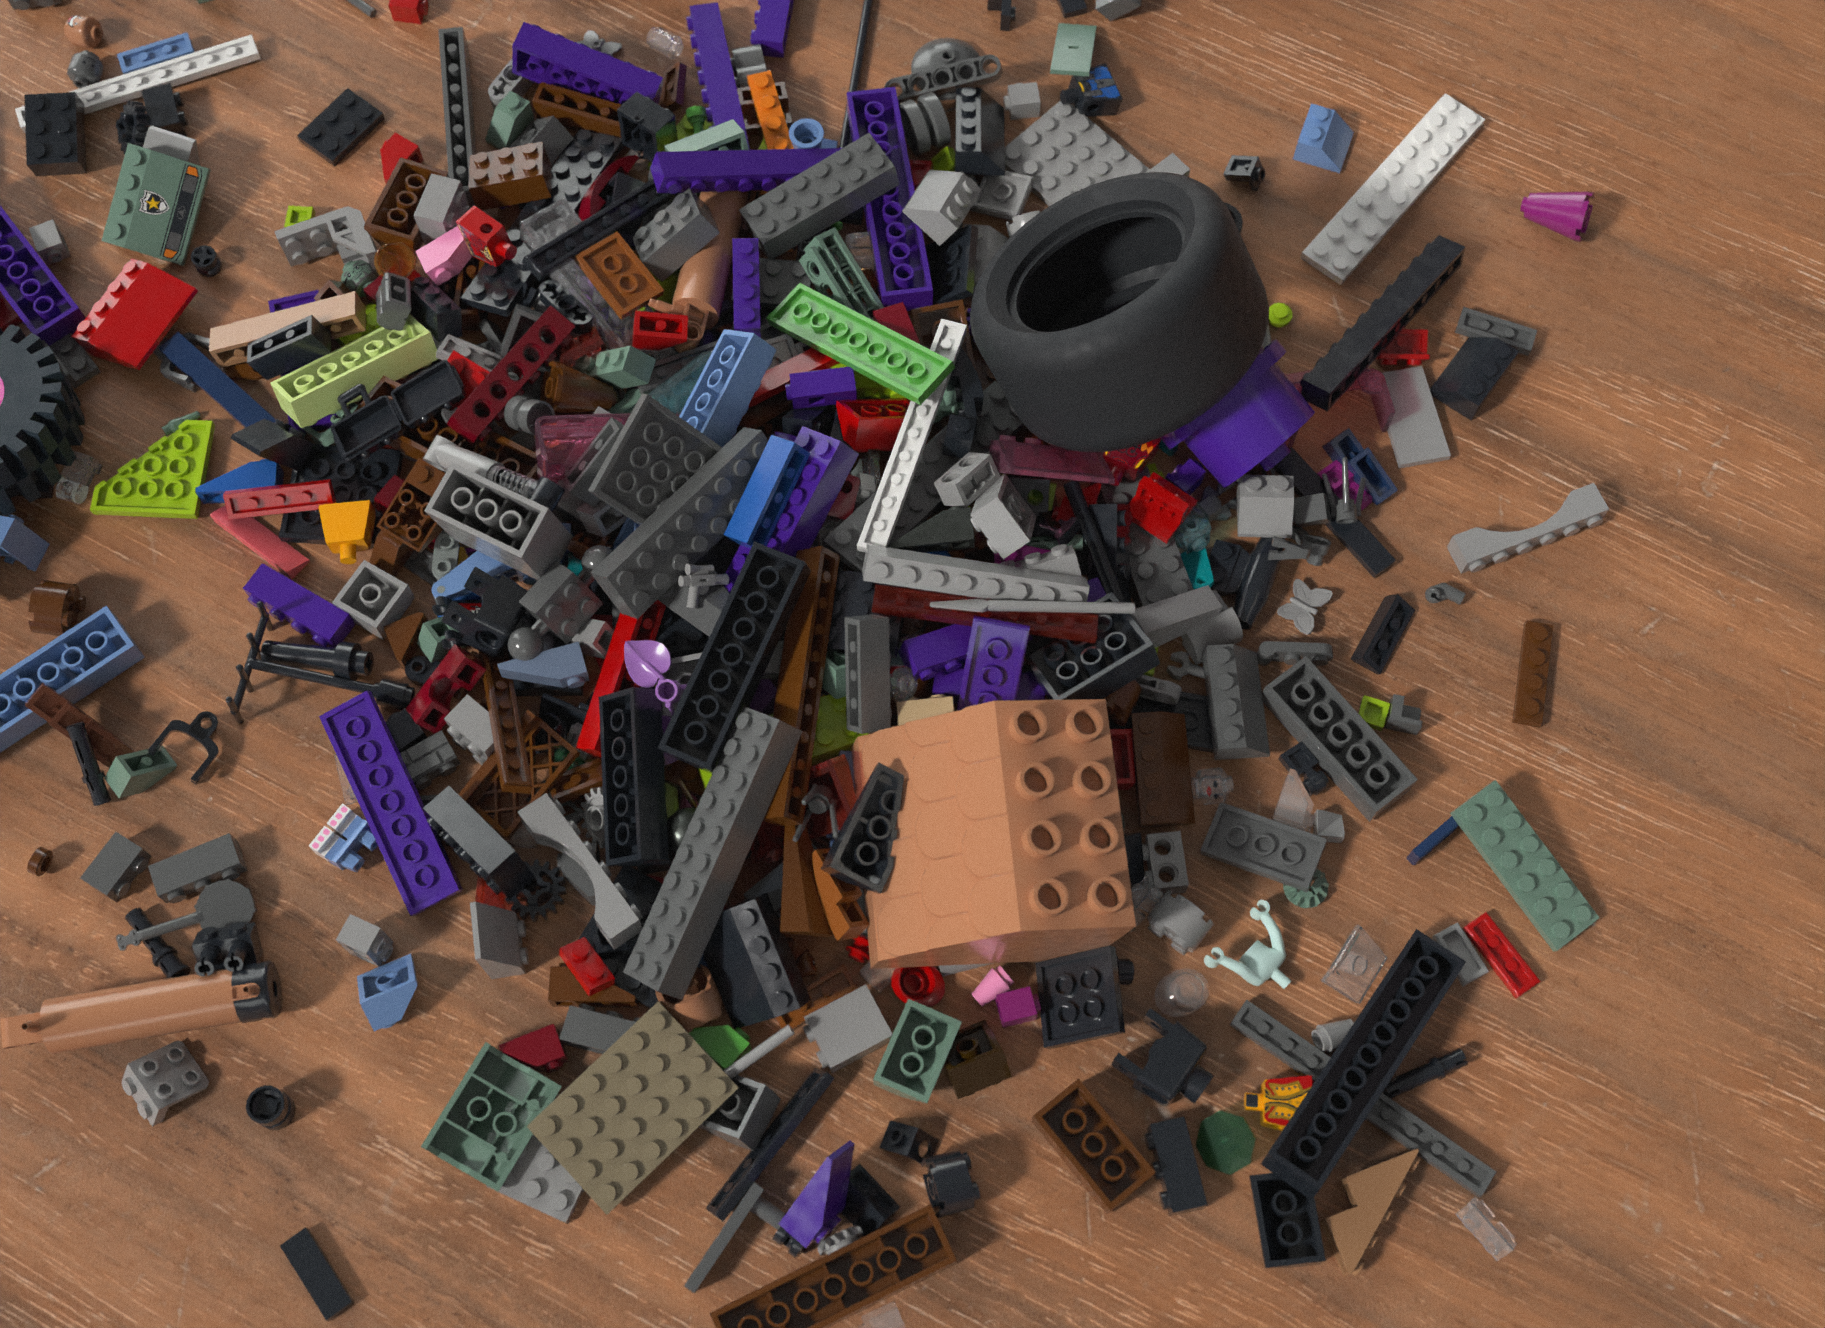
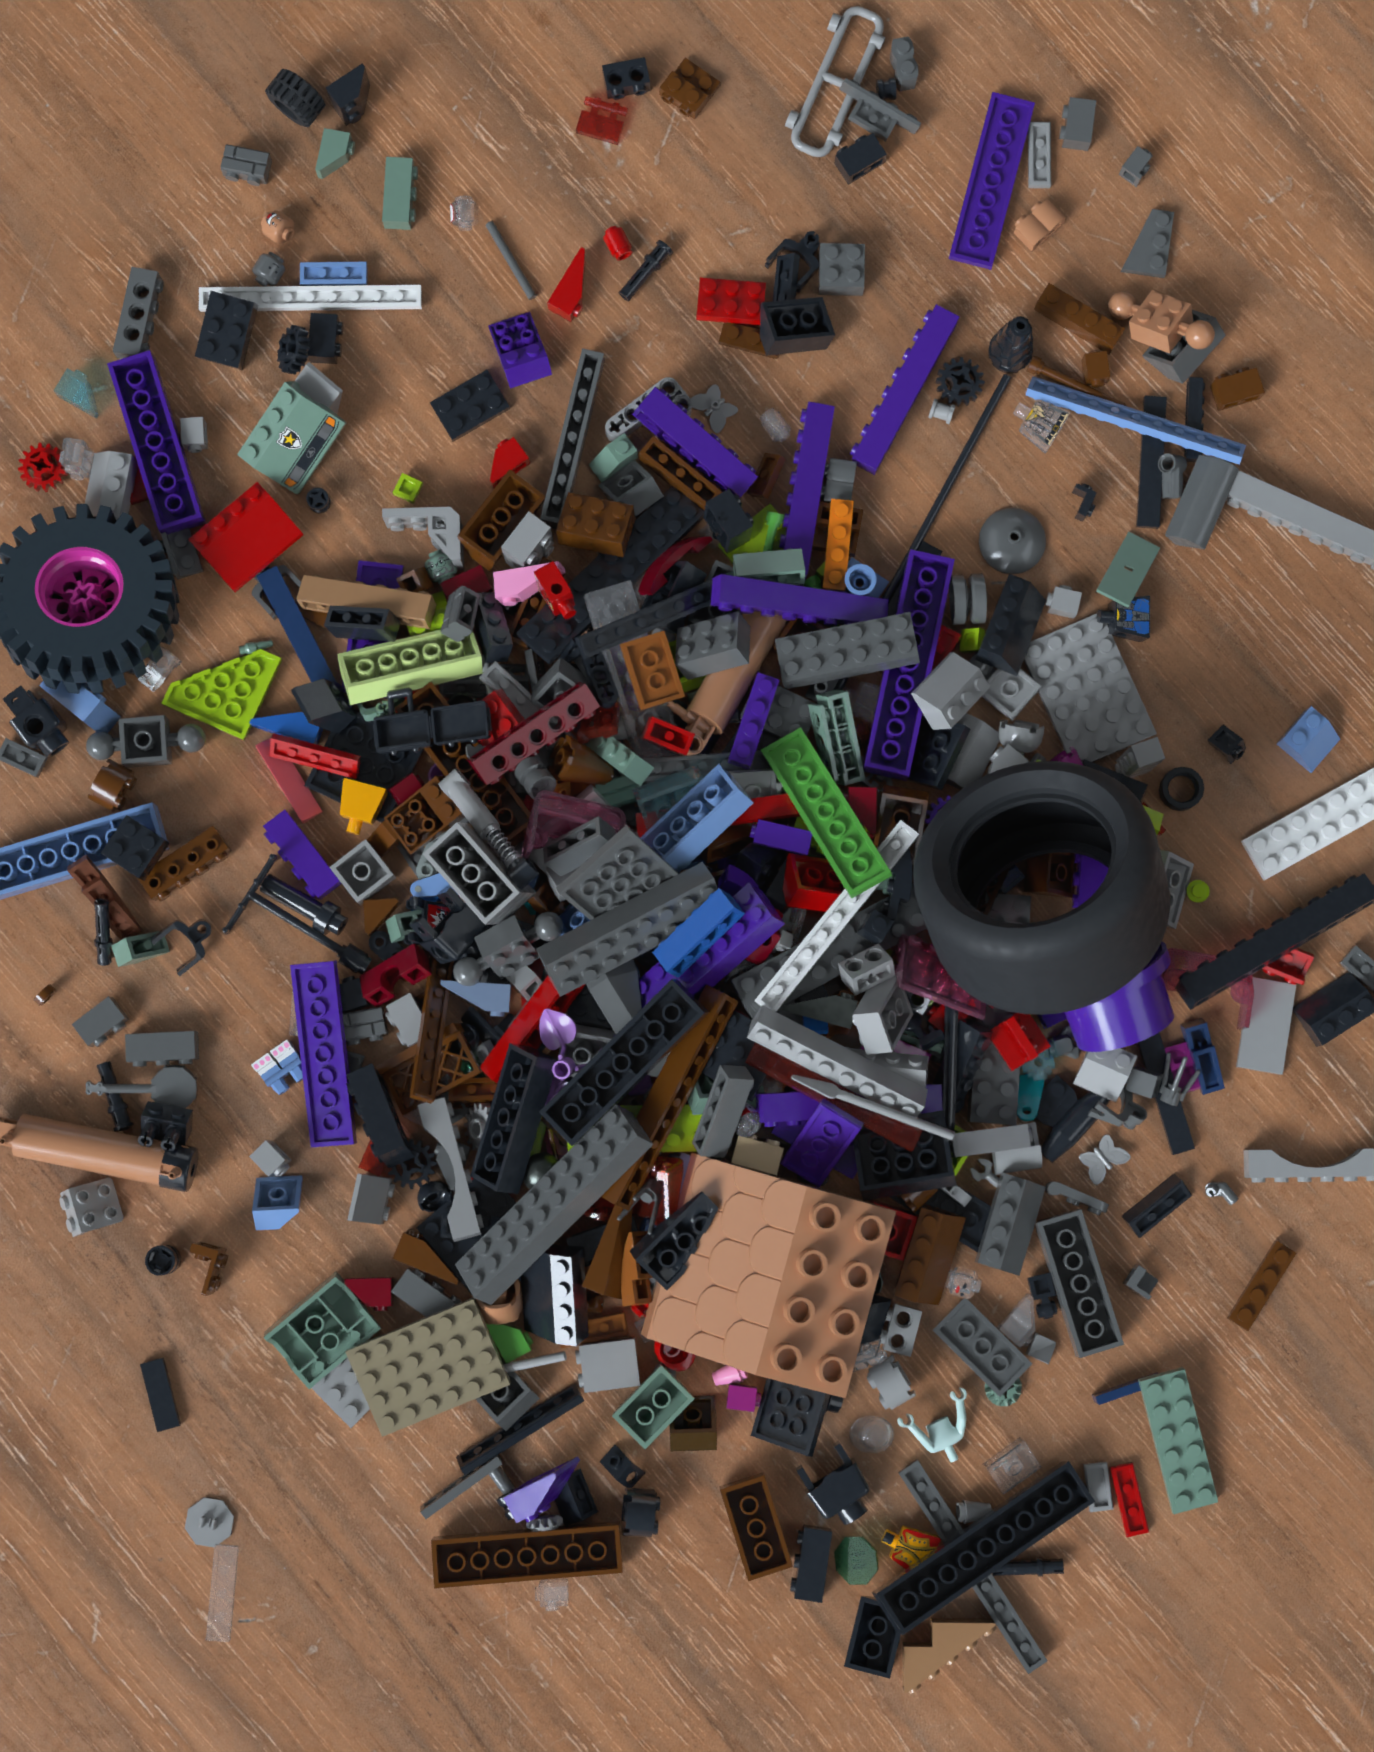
camera: 20 degrees right, 15 degrees up
(83, 551) = (145, 741): none -> dark grey brick
(98, 653) = (135, 848): none -> black brick
(165, 664) = (185, 863): none -> reddish brown brick
(336, 1082) = (218, 1258): none -> reddish brown bracket
(377, 60) = (520, 350): none -> dark purple slope
(395, 258) = (473, 573): clear orange hair -> none
(573, 914) = (433, 1195): none -> black hair
(587, 966) = (430, 1244): red plate -> none
(699, 580) = (619, 981): light grey piece -> none
(954, 72) = (1012, 557): dark grey beam -> none
(1374, 712) = (1117, 1270): lime plate -> none
(1495, 1238) = (1025, 1707): clear hinge -> none

